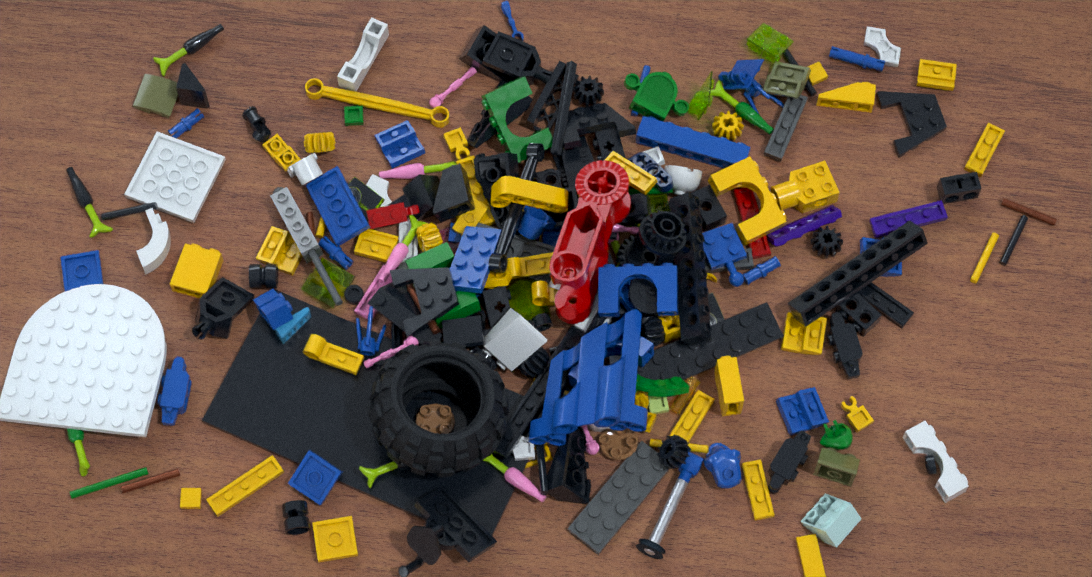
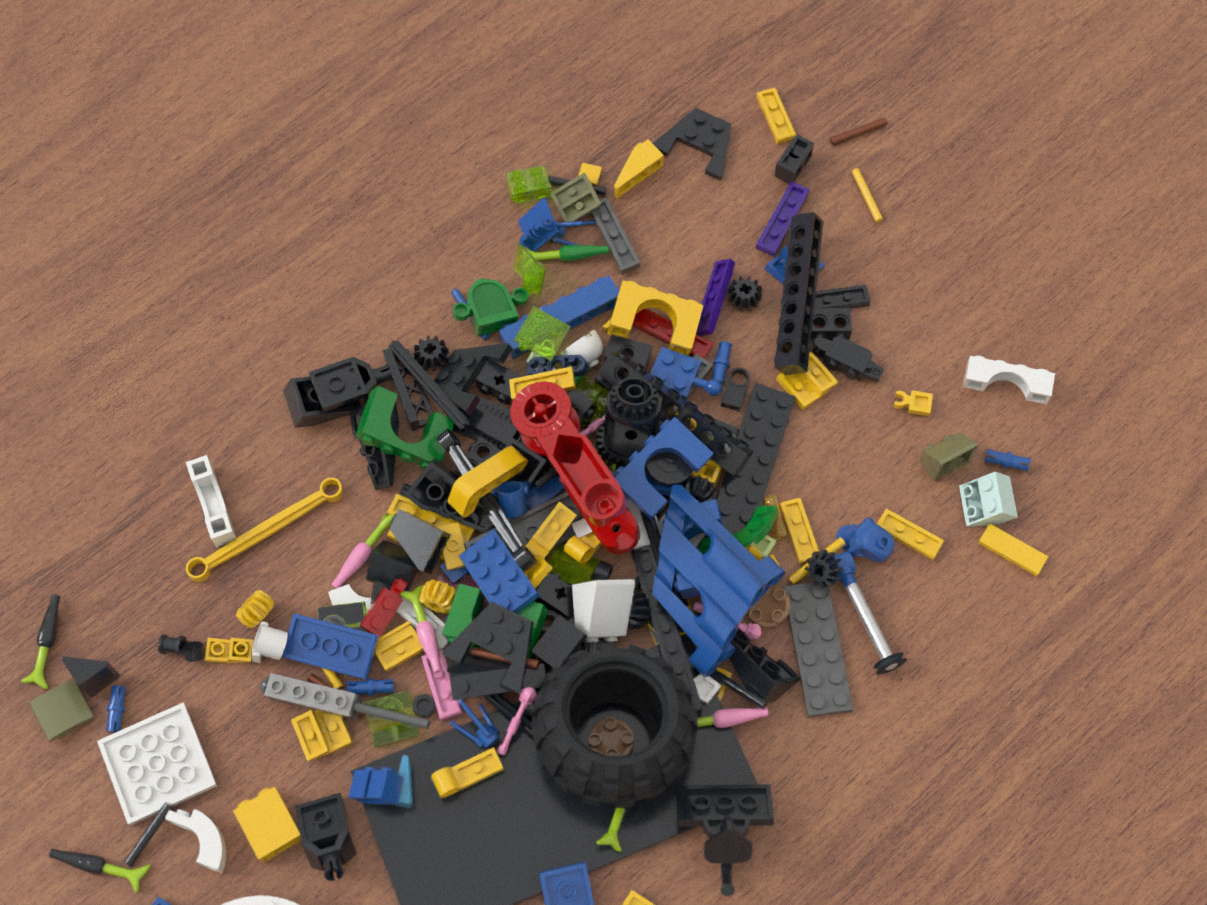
camera: 45 degrees left, 0 degrees up
(263, 276) = (330, 770): black wheel -> none
(353, 115) = (256, 559): green tile -> none
(399, 144) = (322, 544): blue slope -> none
(438, 99) = (314, 478): bright pink piece -> none
(457, 142) = (369, 496): yellow plate -> none
(507, 12) = (290, 352): blue piece -> none
(663, 141) = (541, 333): none -> clear neon green hinge
(727, 125) = (573, 270): yellow gear -> none
(729, 386) = (803, 475): yellow brick -> none
(747, 296) = (735, 393): none -> black piece
(787, 460) = (908, 489): black hinge -> none
(802, 411) = (872, 440): blue slope -> none
(807, 189) = (686, 265): yellow brick -> none
(837, 436) = (922, 432): green piece -> none
(855, 58) = (608, 134): blue pin -> none
(874, 508) = (1007, 460): none -> blue pin
(877, 40) = (624, 109): white tile -> none
(930, 464) = (1008, 386): black tile -> none
(936, 75) = (680, 92): yellow plate -> none
(1013, 240) = (872, 162): black bar -> none

